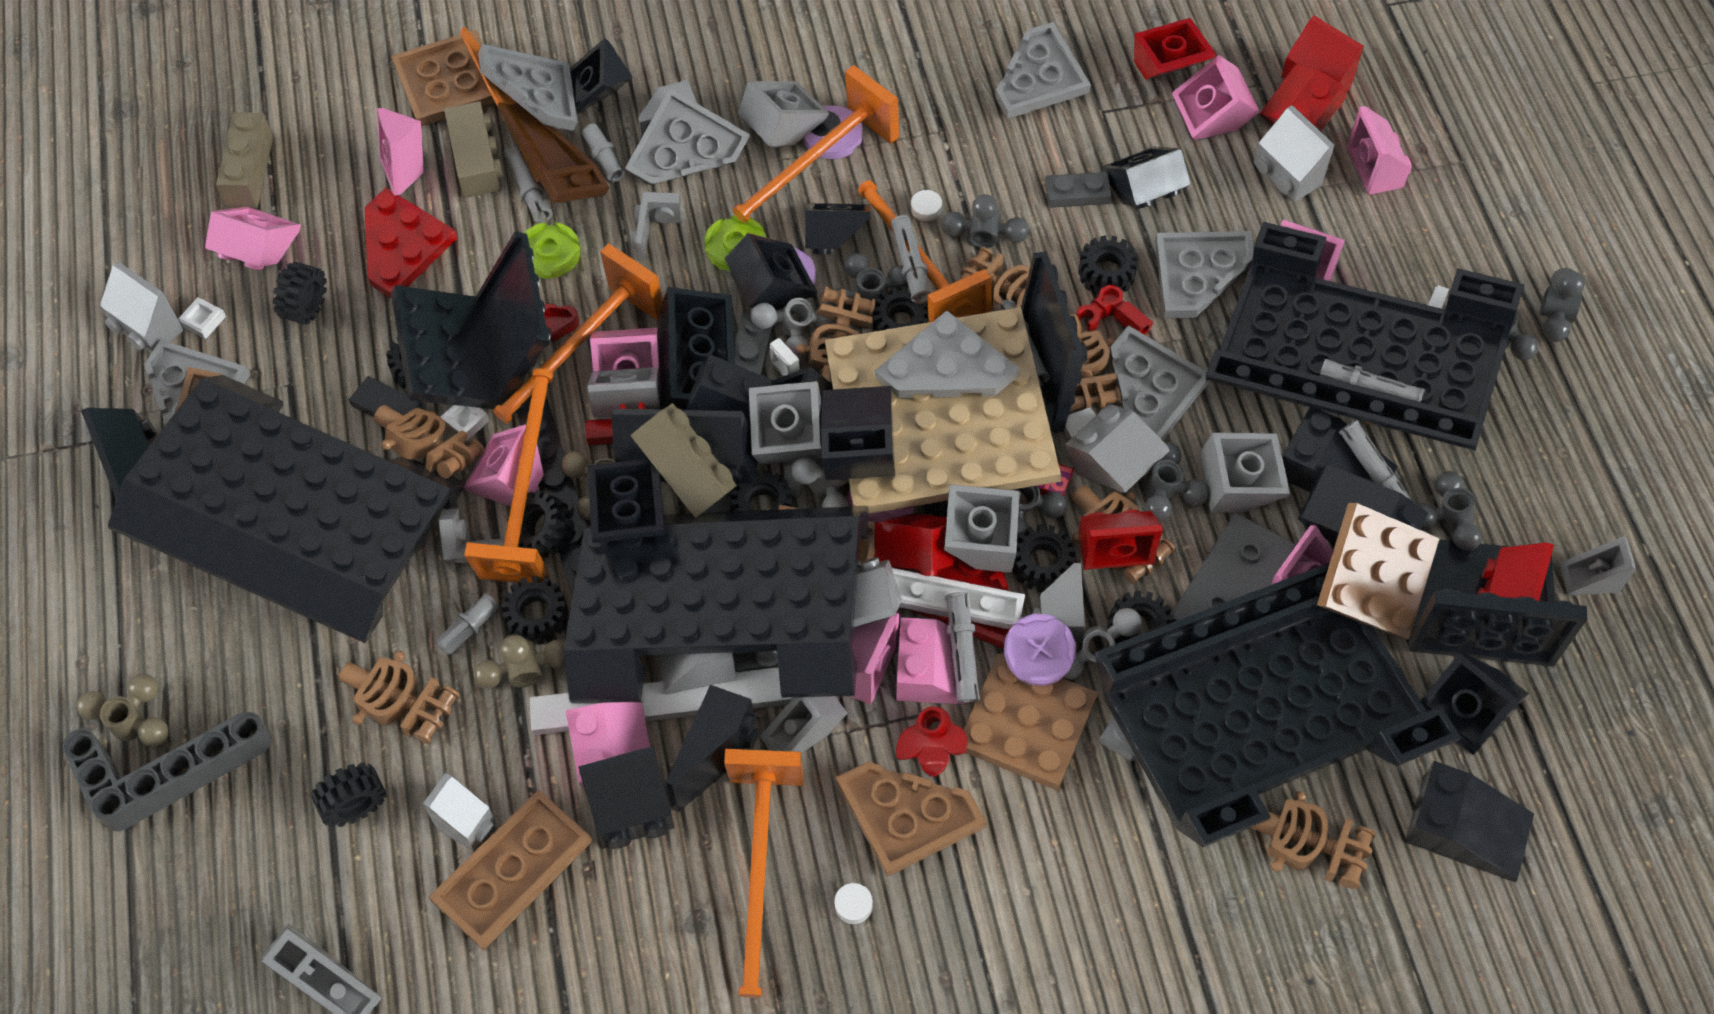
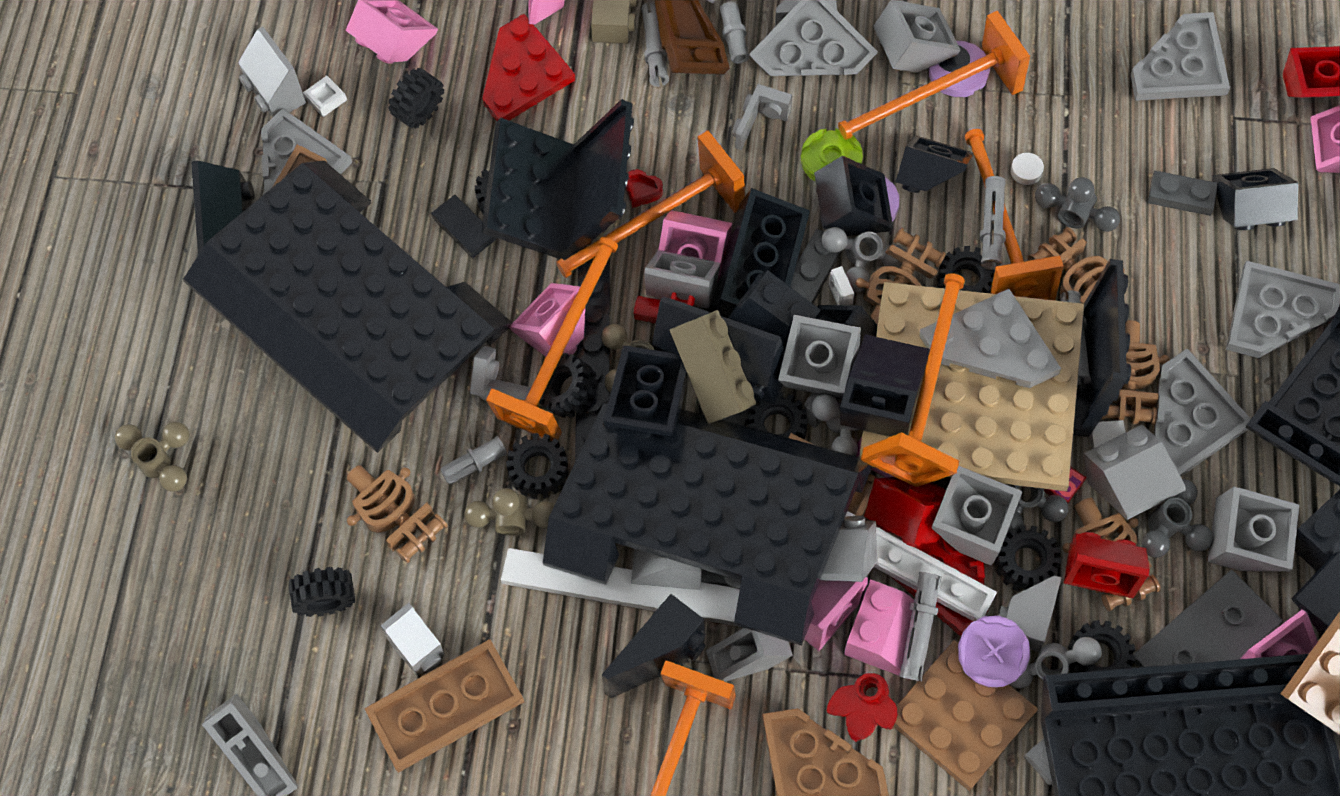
camera: 20 degrees right, 5 degrees up
(161, 771) = (169, 518): dark grey beam -> none
(422, 435) = (475, 270): medium nougat torso -> none
(466, 419) = (529, 263): white tile -> none
(554, 249) = (656, 115): lime tile -> none
(606, 731) = (566, 615): bright pink slope -> none
(627, 798) = (564, 676): black slope -> none
(869, 278) = (940, 214): dark grey piece -> none
(897, 486) = (905, 454): none -> orange tile
(1107, 251) = (1194, 266): black tyre -> none
(1111, 303) = (1178, 320): red bar -> none

